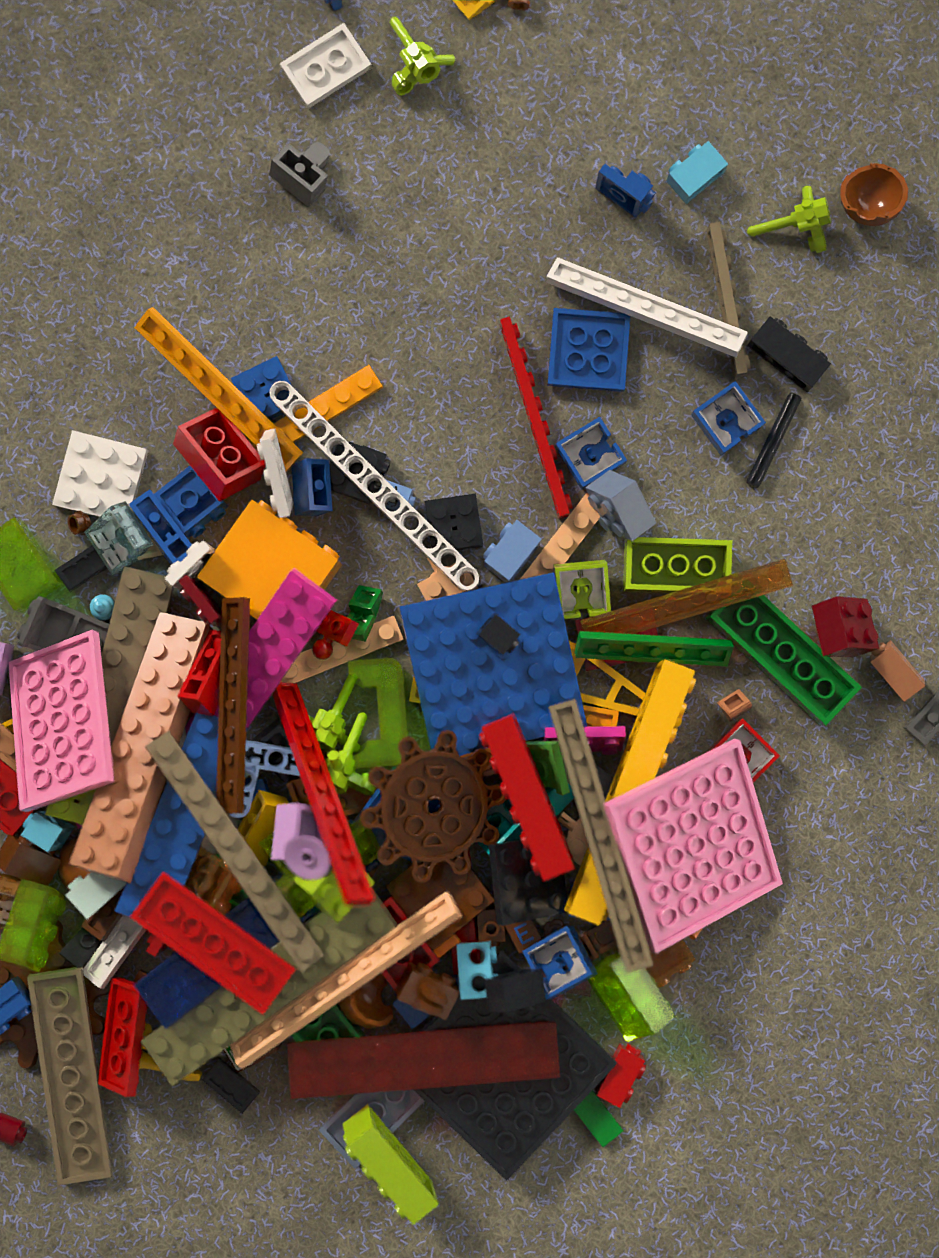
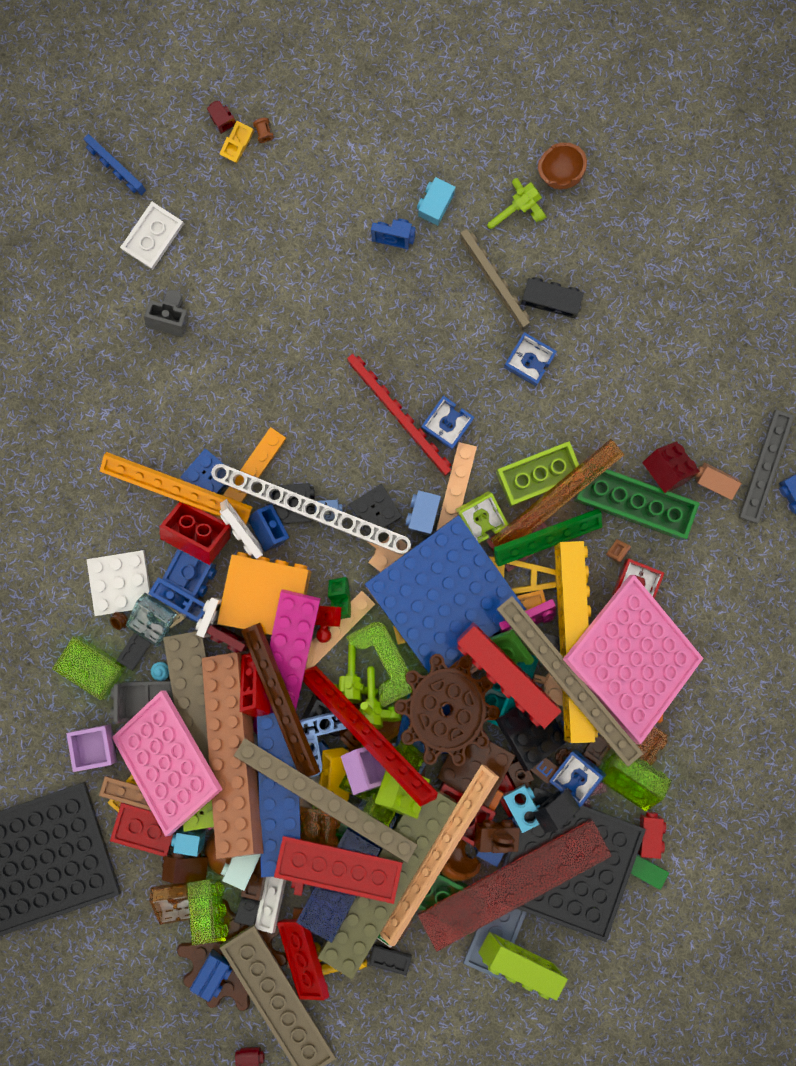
camera: 25 degrees left, 0 degrees up
(307, 857) = (378, 784): lavender piece -> none
(420, 61) = (215, 204): lime piece -> none
(499, 634) = (440, 574): black brick -> none
(588, 349) = (415, 352): blue plate -> none
(620, 505) = (483, 450): sand blue brick -> none
(646, 307) = (442, 307): white plate -> none
(773, 440) = (567, 358): black axle -> none

